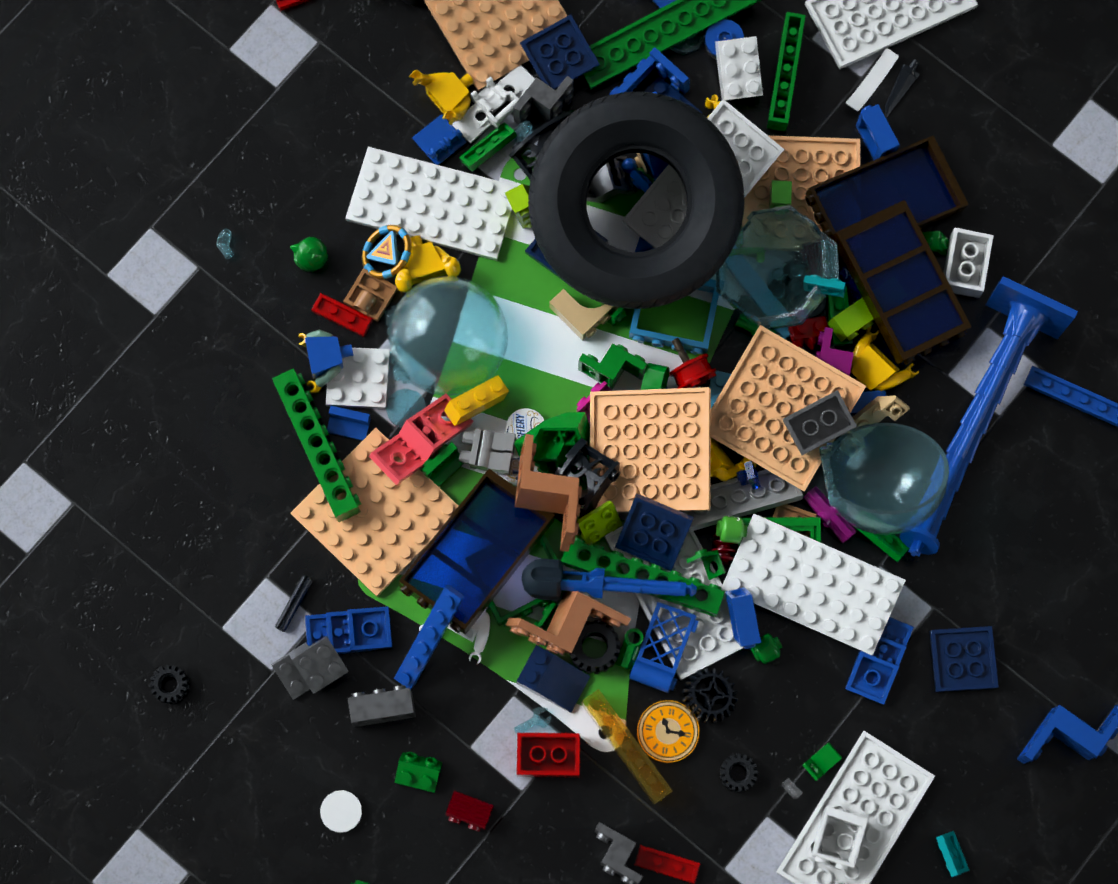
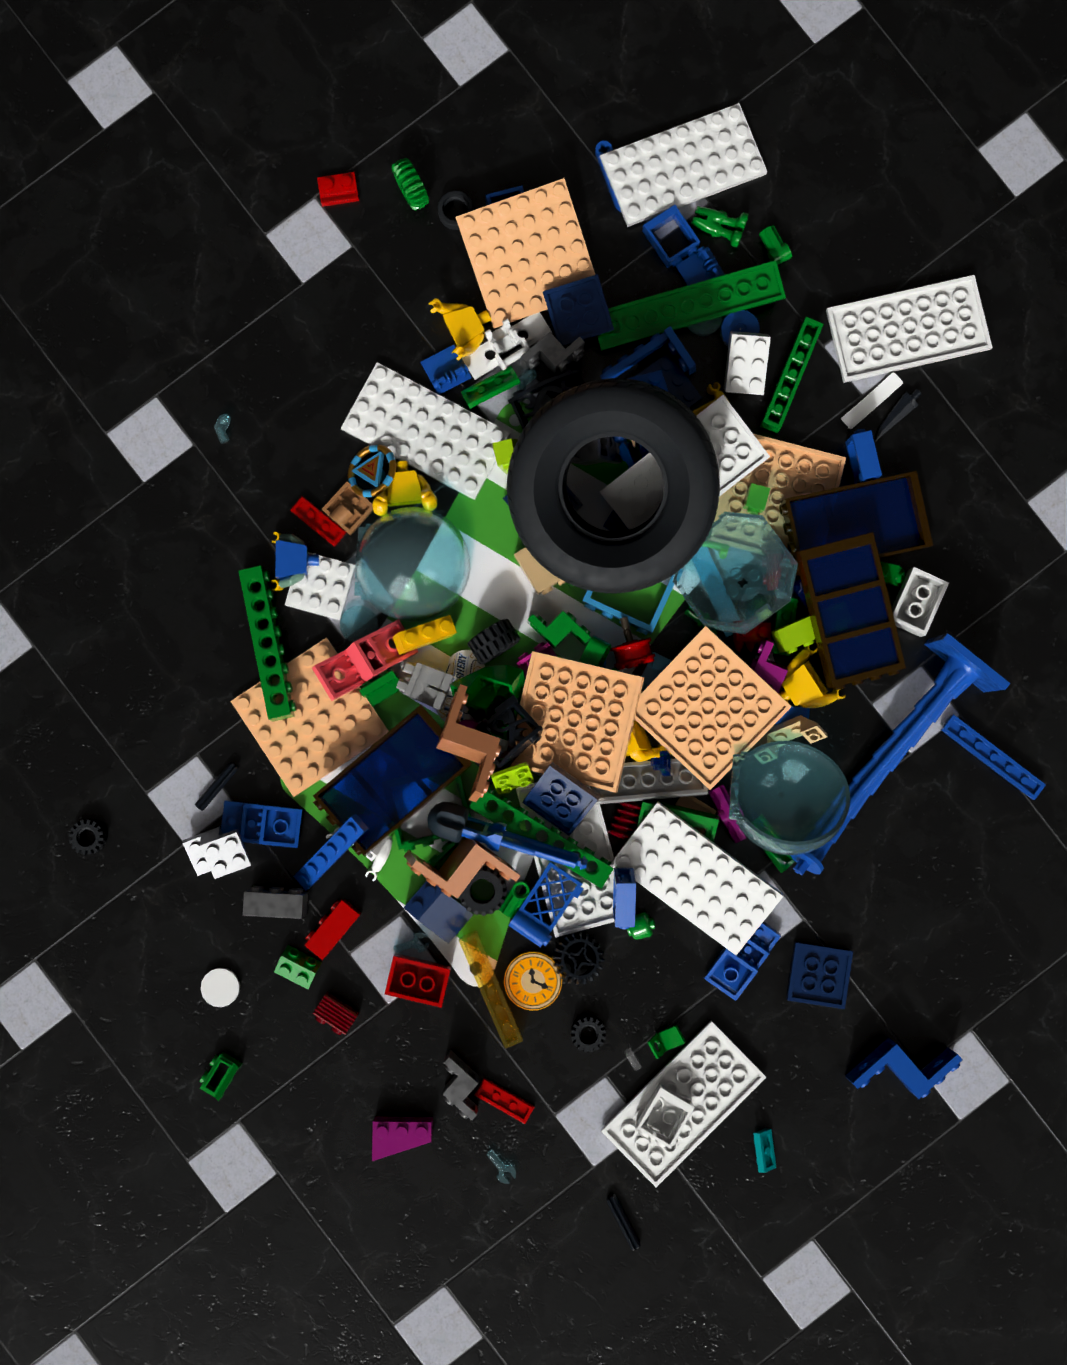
camera: 10 degrees right, 10 degrees up
(310, 254) = (299, 456): green piece -> none
(348, 423) = (302, 628): blue panel -> none
(446, 722) = (332, 928): none -> red brick
(549, 391) = (493, 641): none -> black tyre
(707, 558) = (611, 831): green bracket -> none
(731, 529) = (633, 812): bright green head -> none
(819, 422) = (738, 733): flat silver brick -> none
(831, 287) = (782, 607): teal plate -> none

